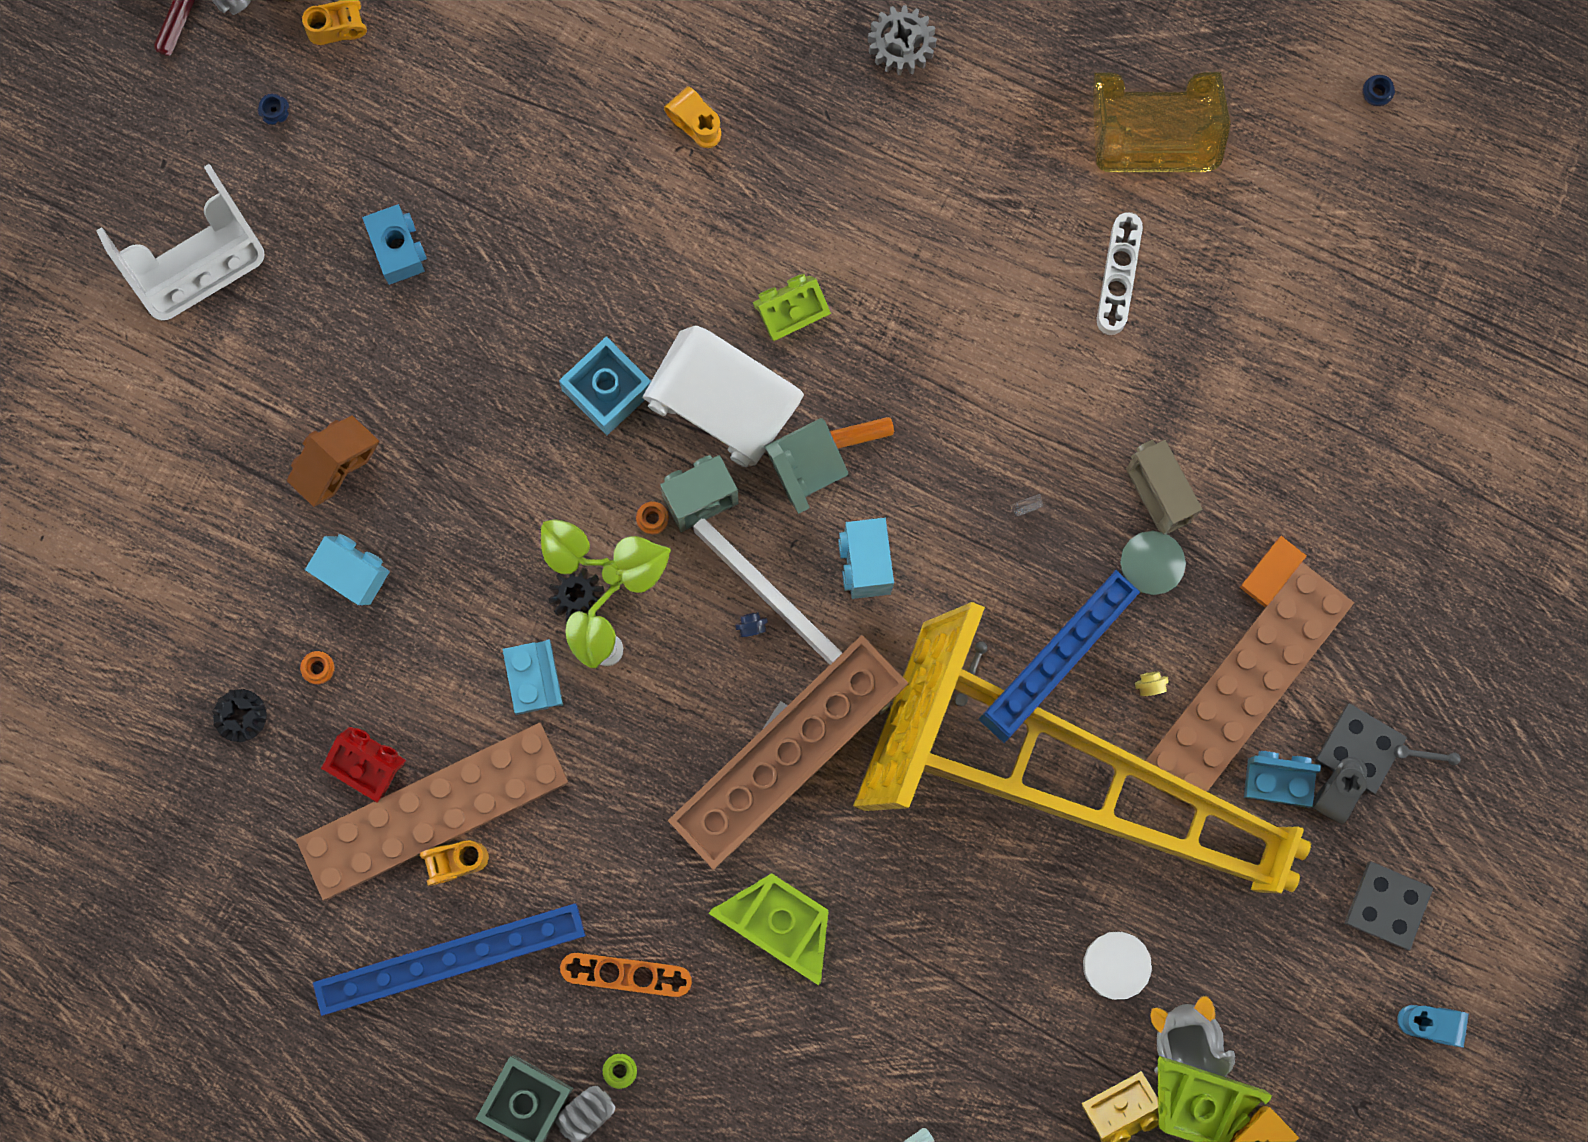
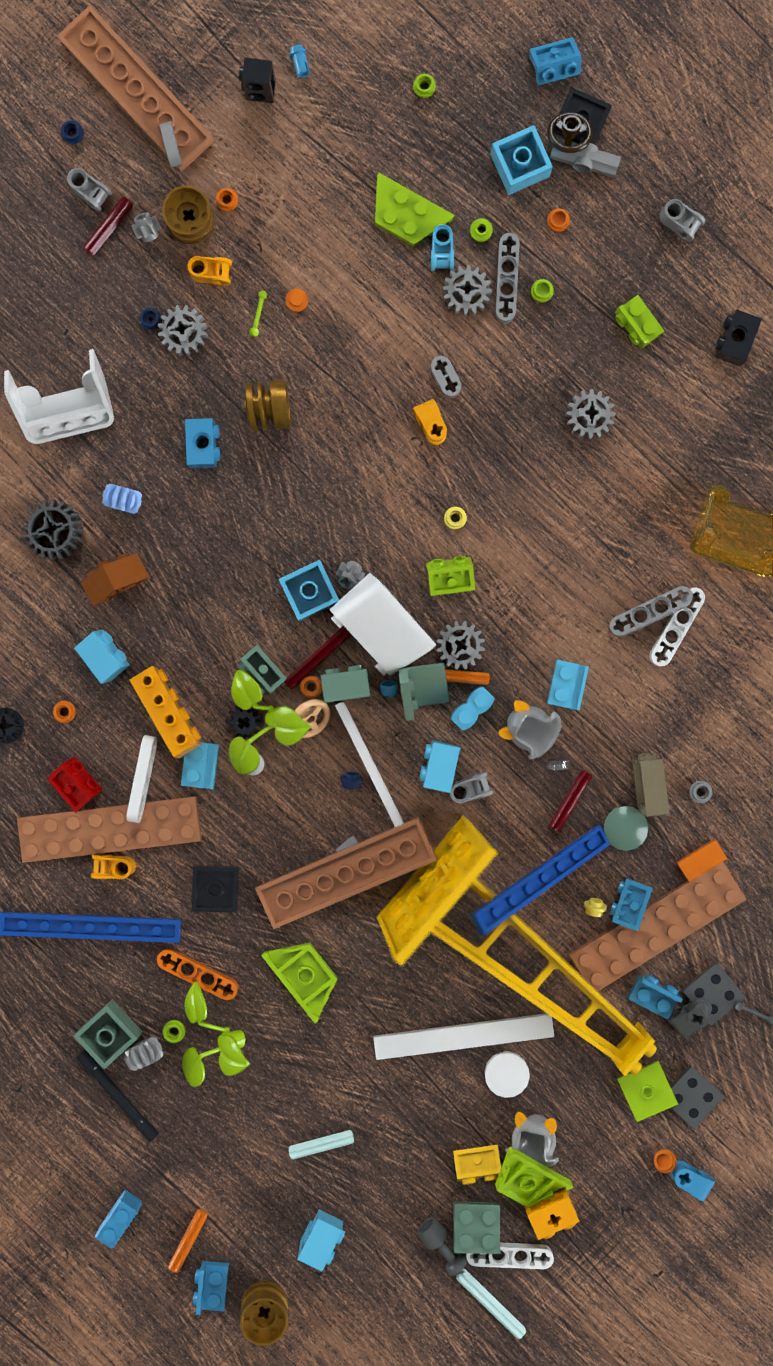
camera: 25 degrees right, 10 degrees up
(236, 418) = (49, 521): none -> dark grey gear
(308, 349) = (121, 498): none -> light blue gear
(335, 100) = (173, 332): none -> light grey gear
(417, 81) = (254, 330): none -> lime hinge
(457, 720) = (142, 779): none -> white beam
(461, 615) = (165, 711): none -> light orange brick
(462, 23) = (296, 300): none -> orange plate
(469, 163) = (268, 405): none -> pearl gold wheel
(578, 508) = (262, 670): none -> sand green brick
(611, 842) = (215, 888): none -> black plate
(649, 472) = (317, 657): none -> dark red axle
(652, 347) = (349, 574): none -> light grey gear
(678, 572) = (310, 714): none -> light nougat piece
(689, 61) = (450, 374): none -> light grey beam
(709, 1054) = (229, 1042): none -> lime plant
(760, 484) = (389, 688): none -> dark azure hinge
(774, 222) = (458, 511): none -> light yellow plate
(825, 387) = (473, 653): none -> light grey gear
(880, 474) = (467, 713): none -> medium azure brick
(924, 576) = (472, 788): none -> light grey piece
(975, 468) = (531, 729): none -> light grey hair
(1002, 398) = (567, 685): none -> medium azure plate
(1035, 932) = (463, 1036): none -> white tile
(1063, 551) = (570, 800): none -> dark red axle
(1073, 260) = (652, 614): none -> light grey beam
(1200, 659) = (631, 905): none -> dark azure bracket
(1244, 475) = (706, 795): none -> light grey plate
(1323, 917) = (647, 1091): none -> lime plate
(1387, 1011) = (665, 1161): none -> orange plate

